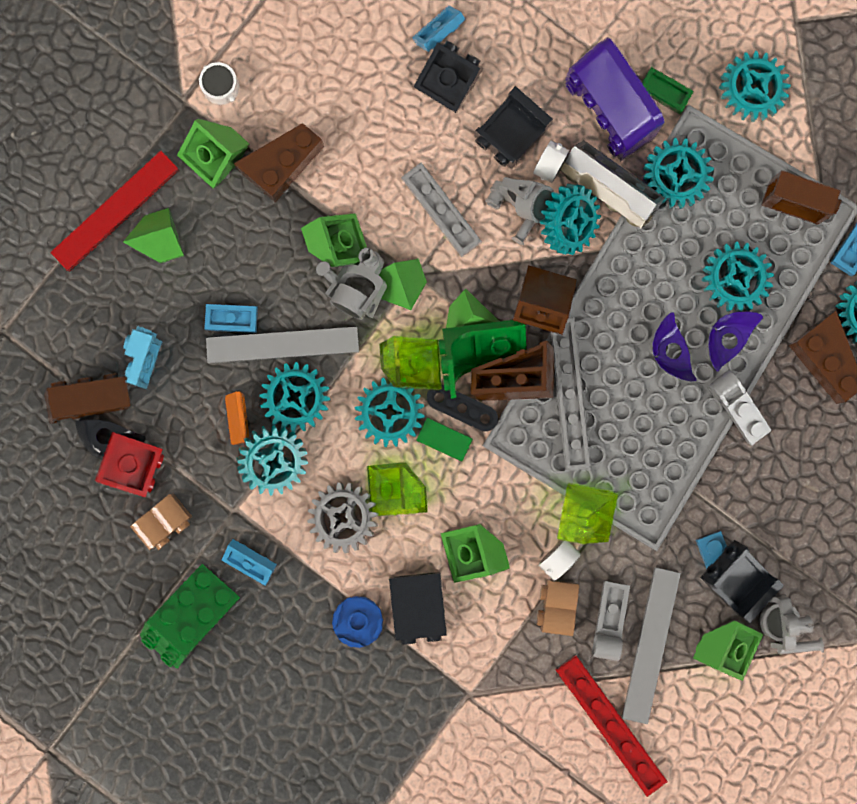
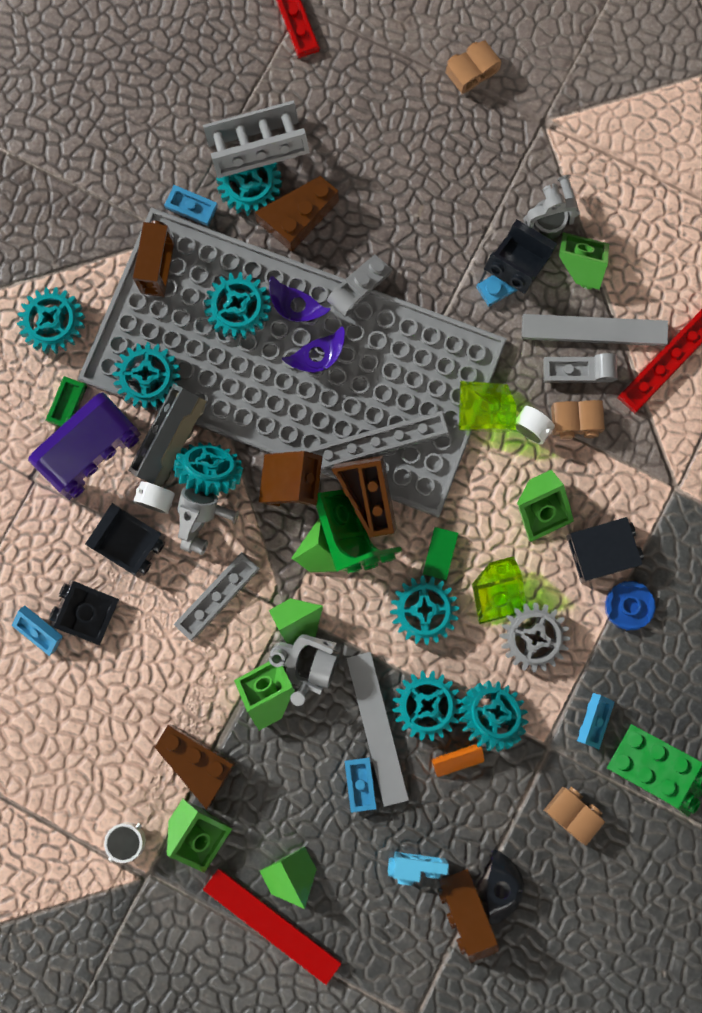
camera: 95 degrees left, 5 degrees down
(129, 465) = (526, 858): red plate -> none
(411, 362) = (373, 597): clear neon green slope -> none
(474, 409) = (410, 531): black plate -> none

